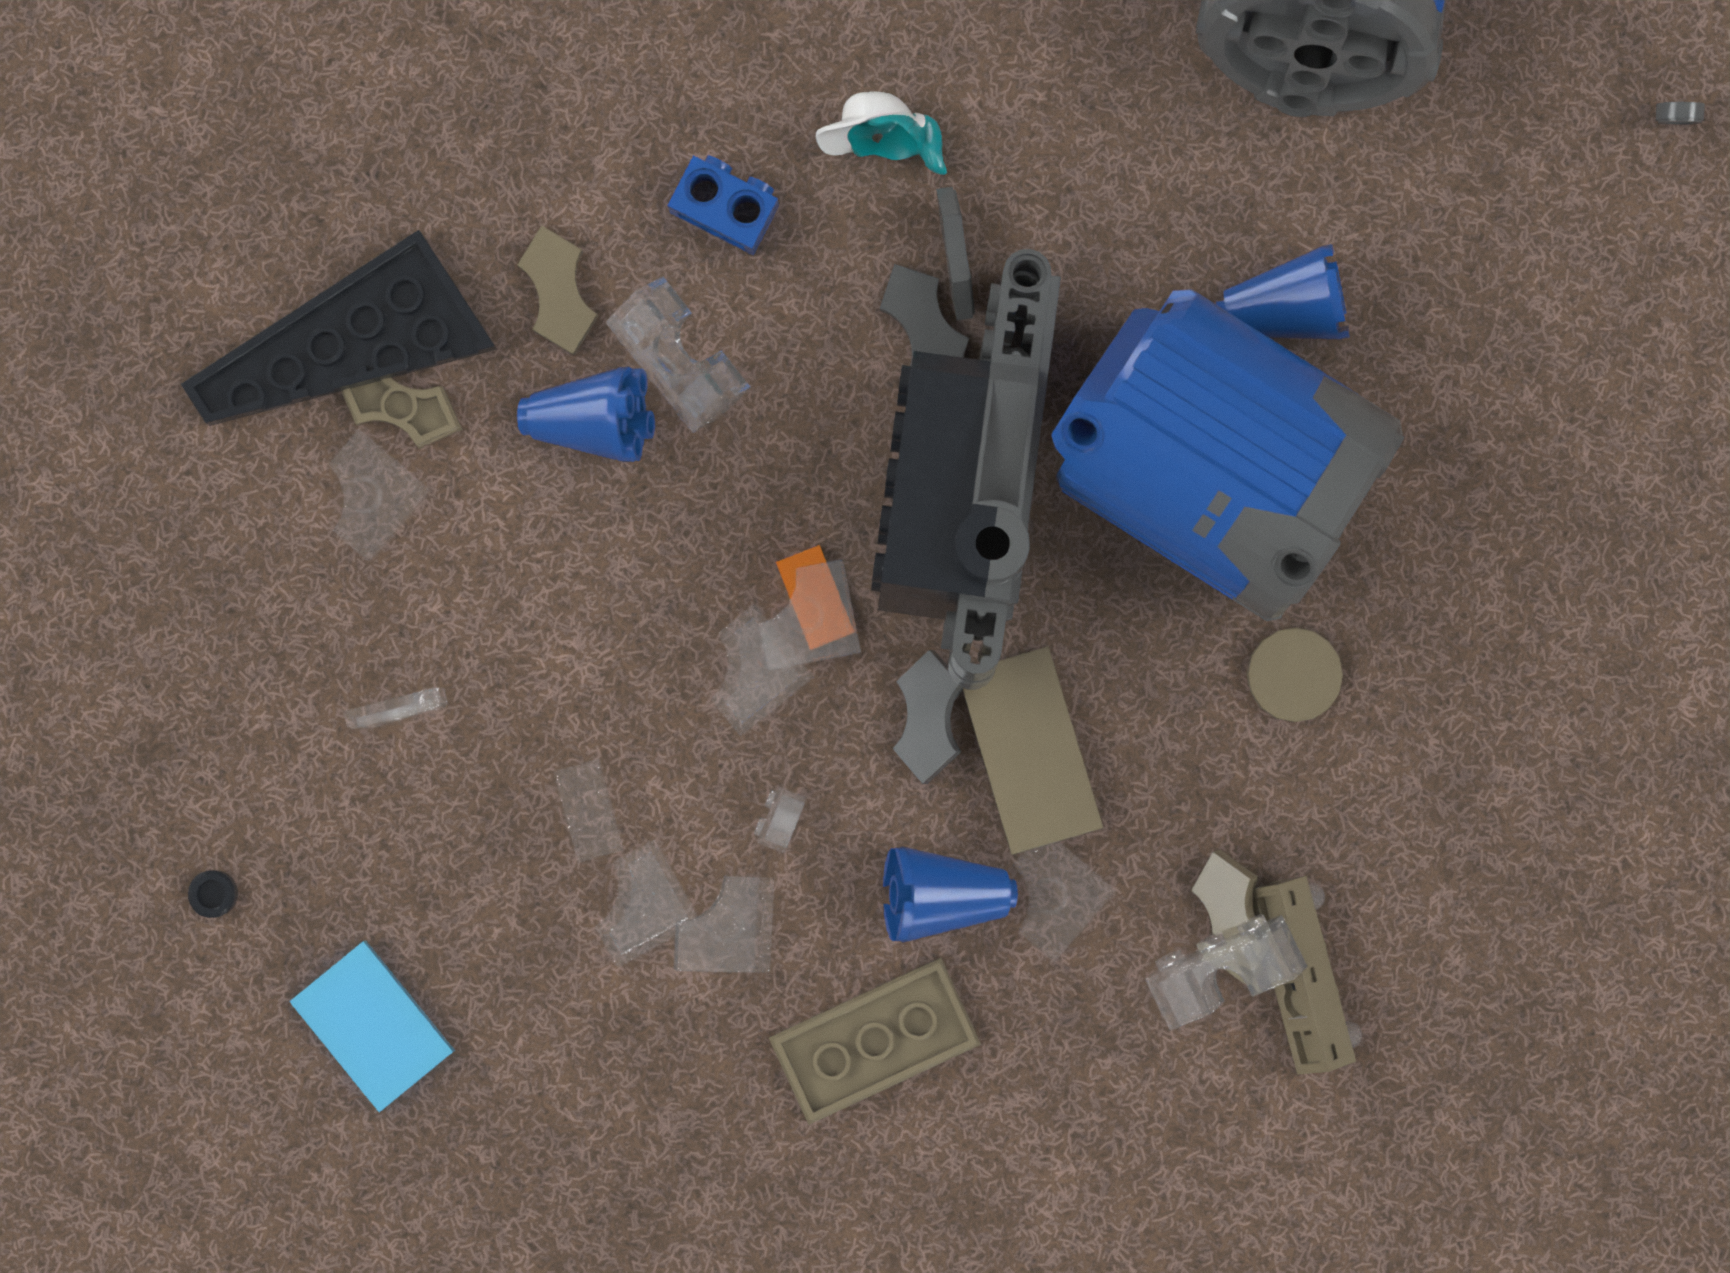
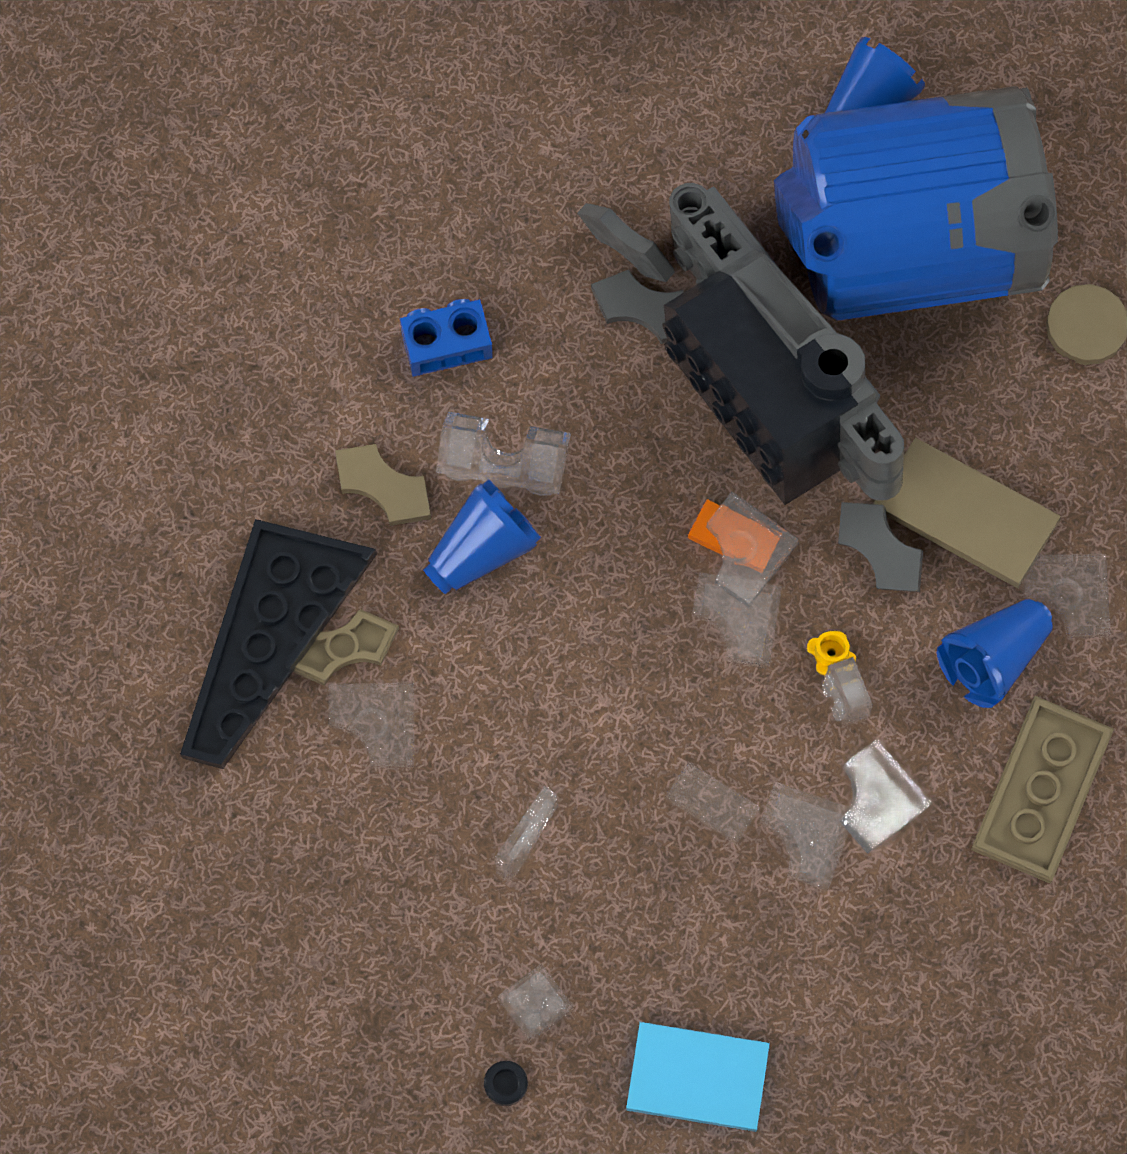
camera: 45 degrees left, 15 degrees down
(292, 850) = (535, 1003): none -> clear piece
(816, 766) = (828, 641): none -> yellow plate
(902, 131) = (510, 197): hair -> none

